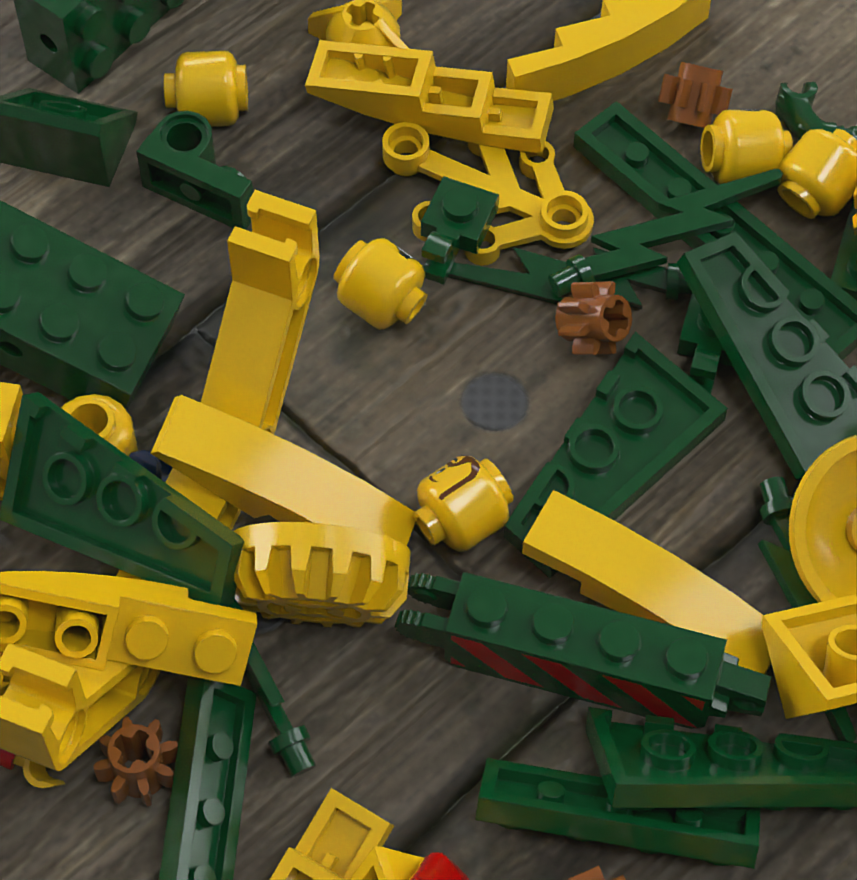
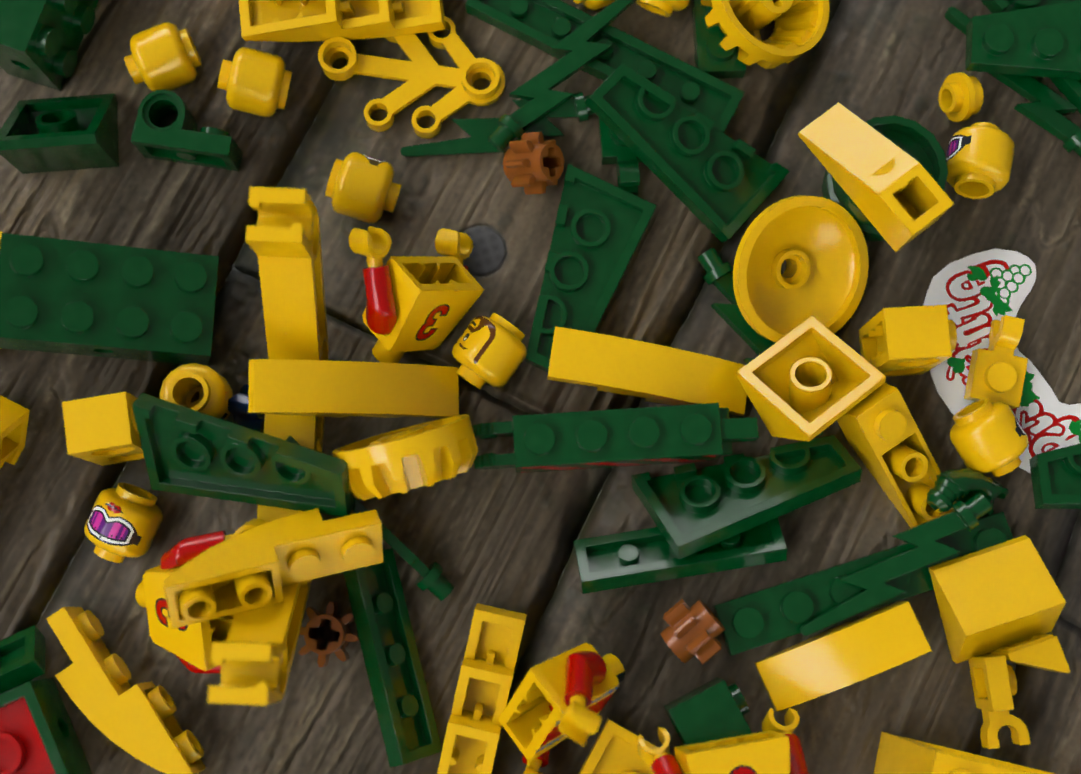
camera: 20 degrees left, 20 degrees up
(301, 141) = (255, 82): none -> yellow head
(392, 407) = (414, 298): none -> yellow torso
(455, 221) = (401, 112): dark green plate -> none

